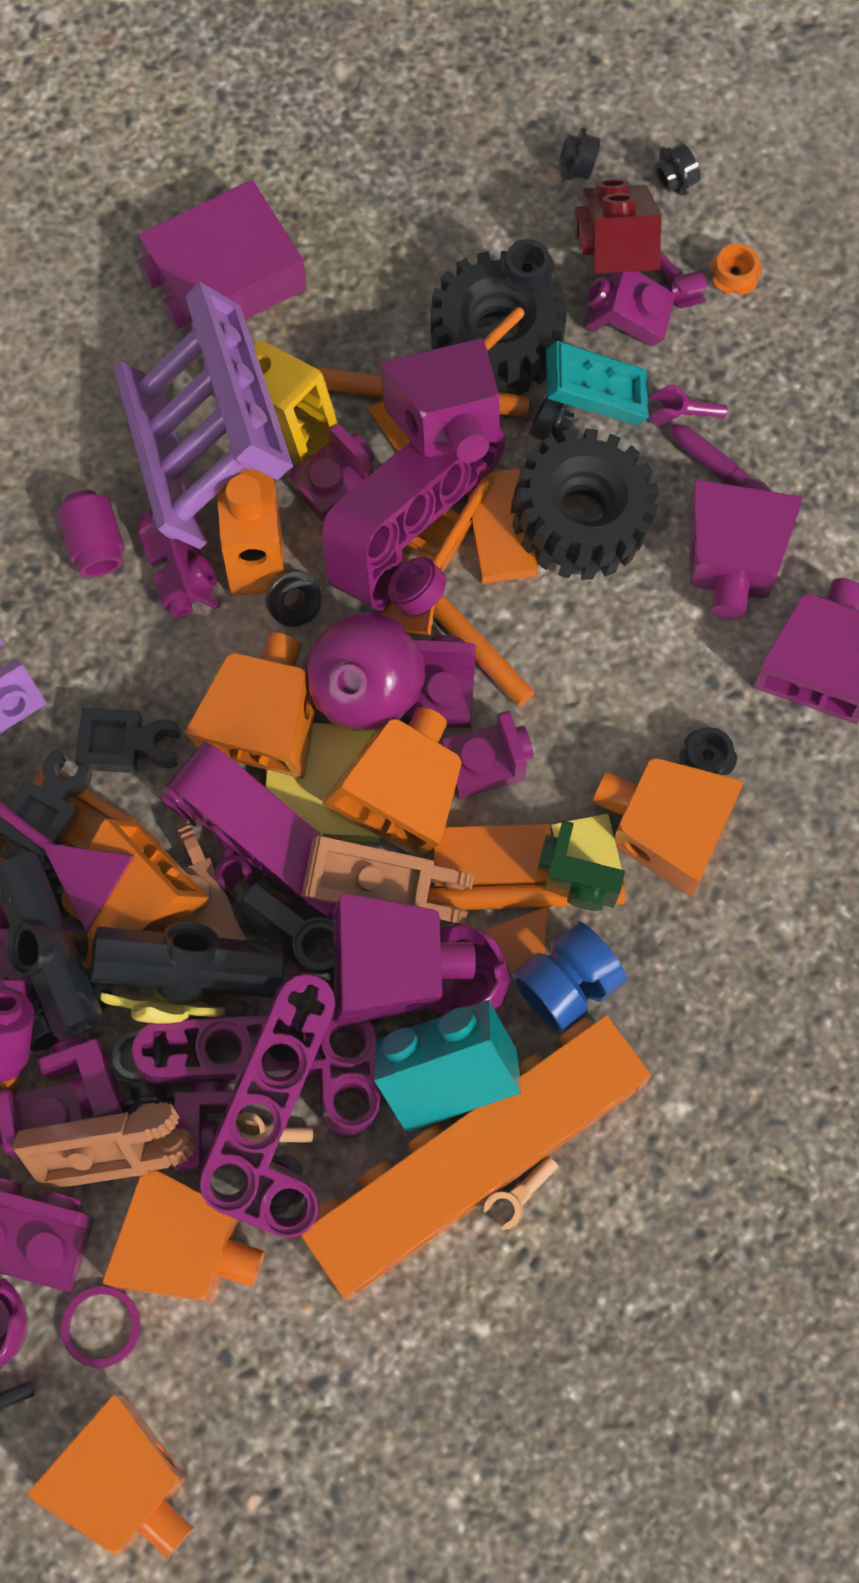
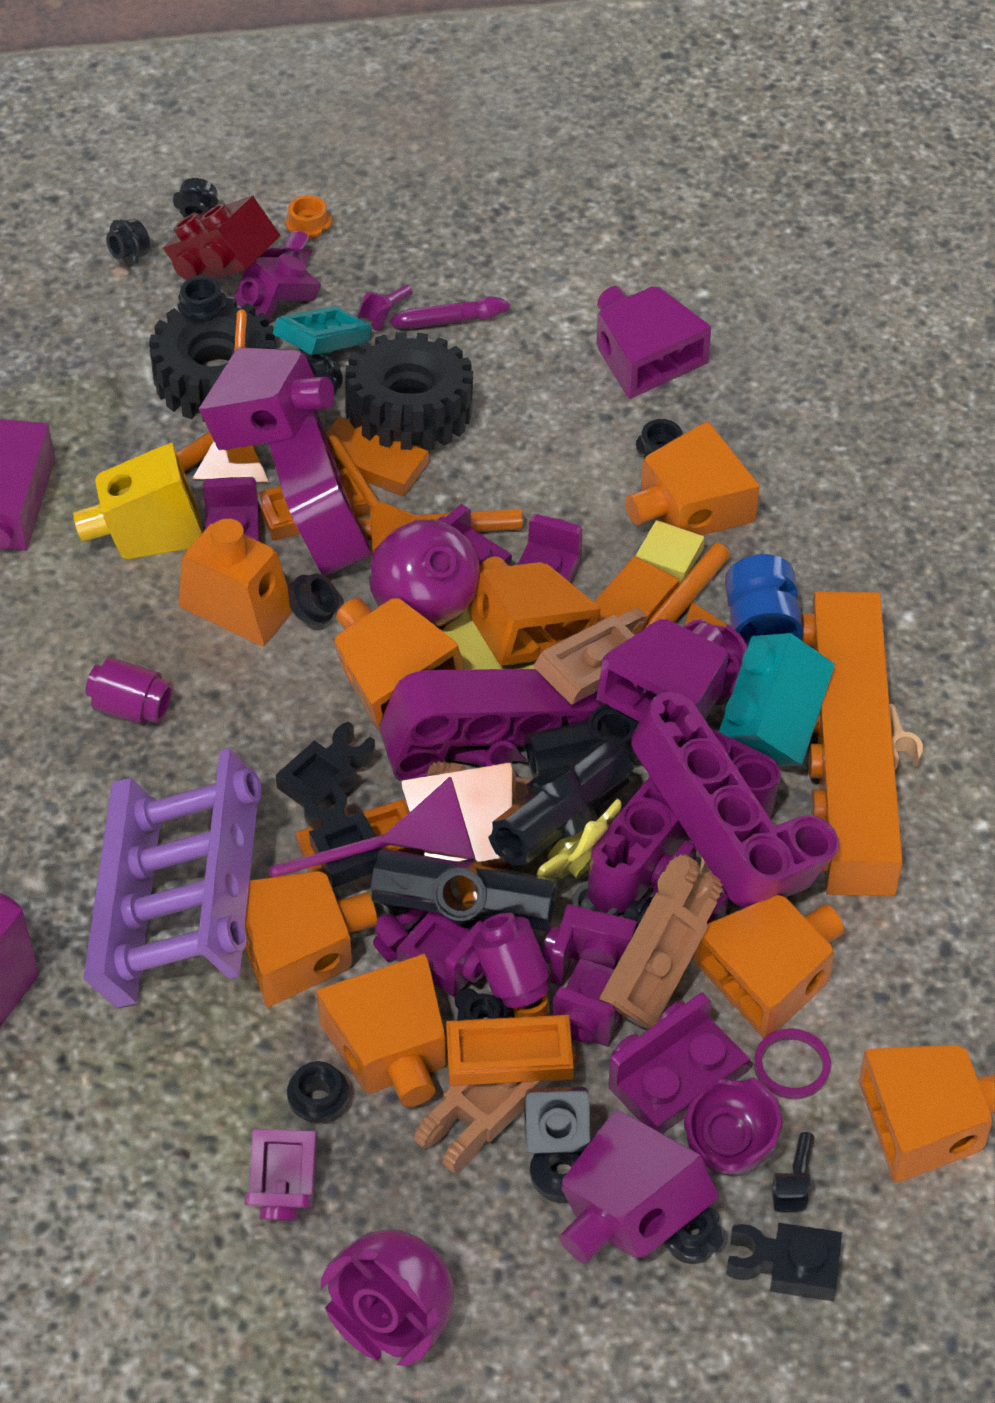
camera: 55 degrees left, 20 degrees down
(186, 578) = (225, 655): magenta hinge -> none
(241, 411) = (106, 492): medium lavender fence -> none
(416, 586) = (382, 510): magenta tile -> none
(584, 882) = (695, 551): dark green bracket -> none
(737, 542) = (518, 333): magenta torso -> none

